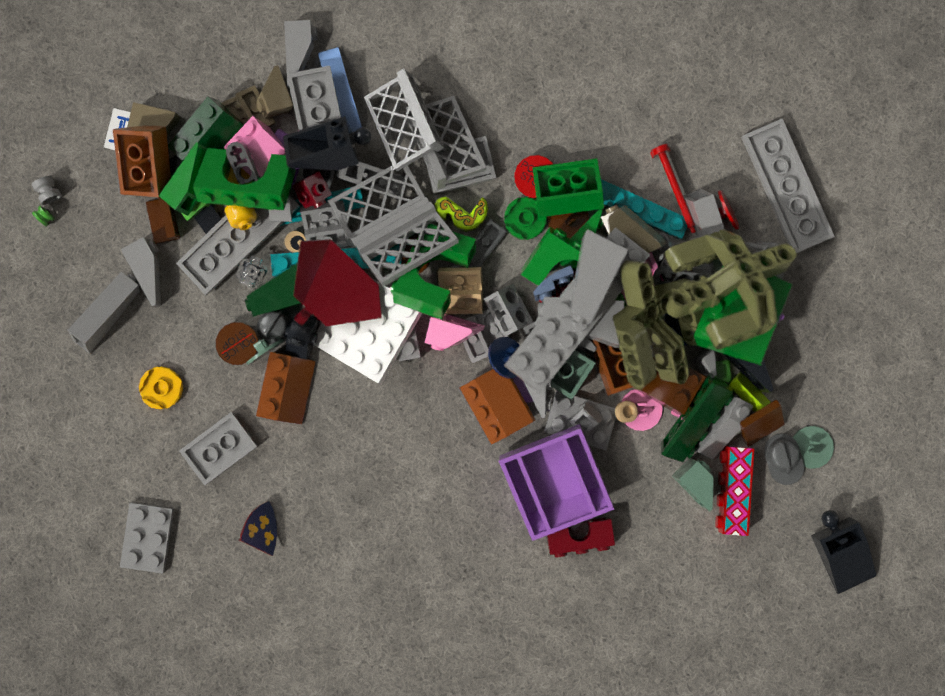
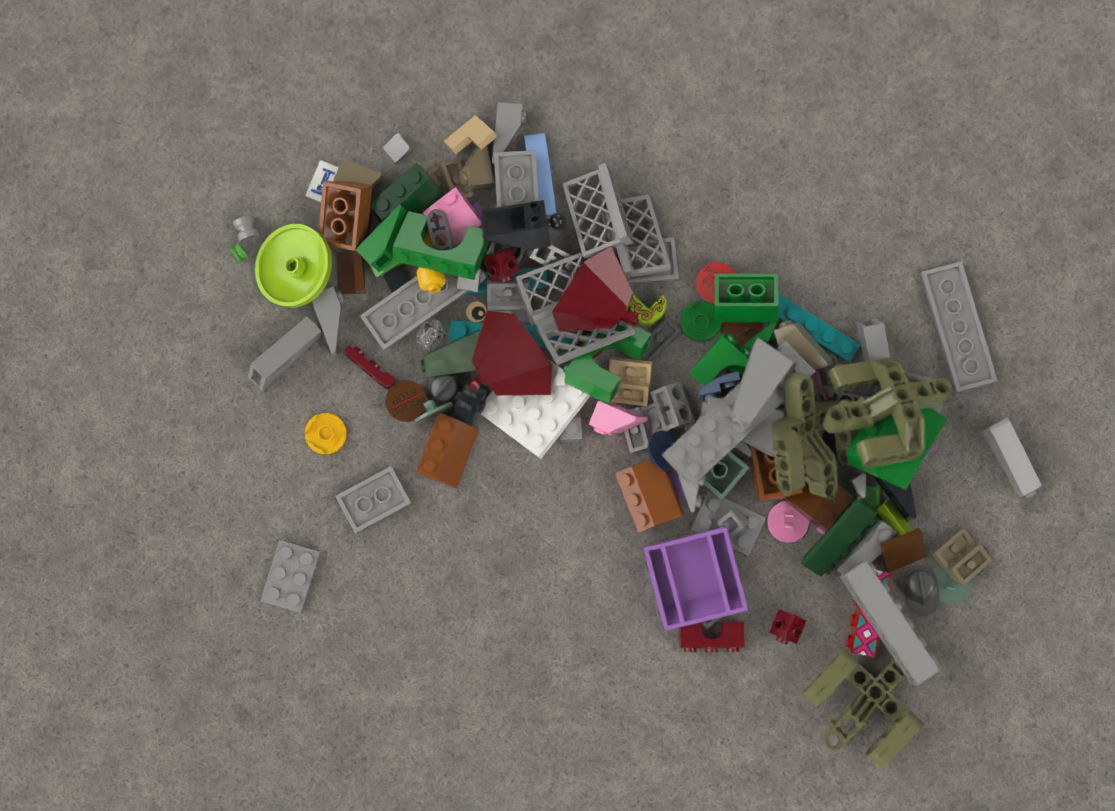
camera: 15 degrees right, 5 degrees down
(99, 221) = (293, 265): none -> lime dish
(189, 84) = (397, 148): none -> light grey slope
(195, 314) = (371, 368): none -> dark red hinge
(261, 529) = (403, 583): dark blue shield -> none
(264, 55) = (472, 131): none -> tan tile
(413, 209) = (596, 296): none -> dark red panel
(626, 411) = (773, 521): tan tile -> none
(655, 517) = (787, 627): none -> dark red brick
(661, 151) = (840, 275): red piece -> none
(697, 481) = (832, 598): sand green slope -> none
(726, 210) = (896, 341): red piece -> none
(760, 502) = (890, 623): none -> light grey brick
(787, 601) = (904, 722): none -> olive piece
(821, 420) = (961, 557): none -> dark tan slope
(844, 556) = (967, 693): black slope -> none
(859, 312) = (1012, 457): none -> light grey slope

